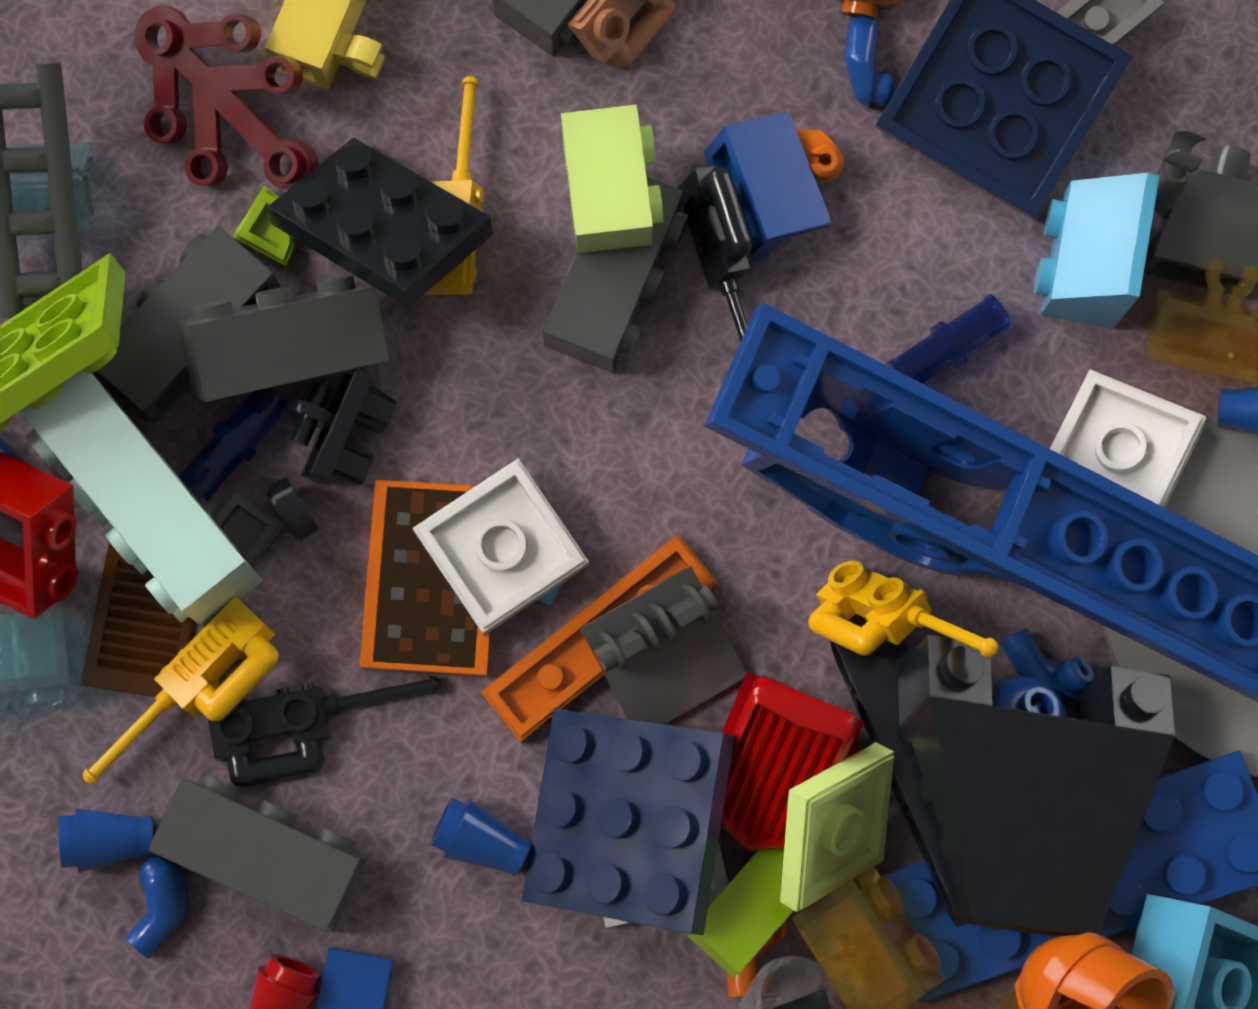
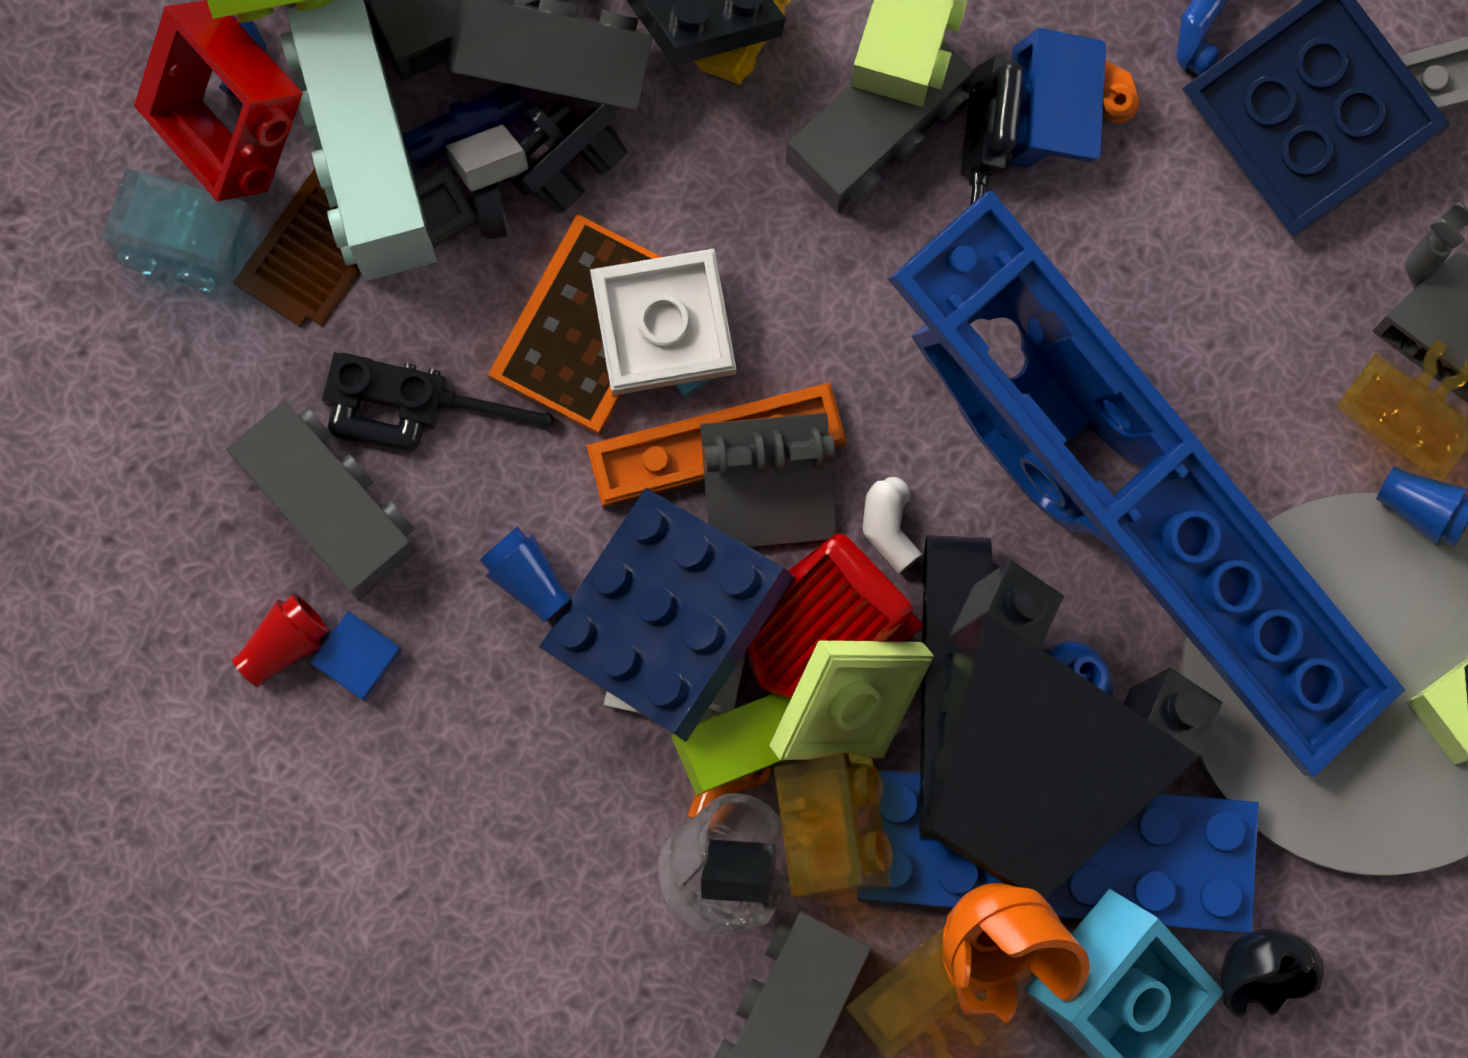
camera: 25 degrees right, 0 degrees up
(102, 838) = (190, 425): blue cone -> none
(165, 902) = (221, 508): blue arm -> none
(195, 674) = (338, 315): yellow piece -> none
(269, 465) = (487, 157): none -> light grey tile
(785, 643) = (883, 521): none -> white arm
(887, 605) = (988, 526): yellow piece -> none
(953, 341) = (1164, 317): clear blue pin -> none
(1063, 677) = (1124, 666): blue arm -> none
(1097, 248) = (1335, 288): medium azure slope -> none
(1129, 436) = (1289, 474): white tile -> none

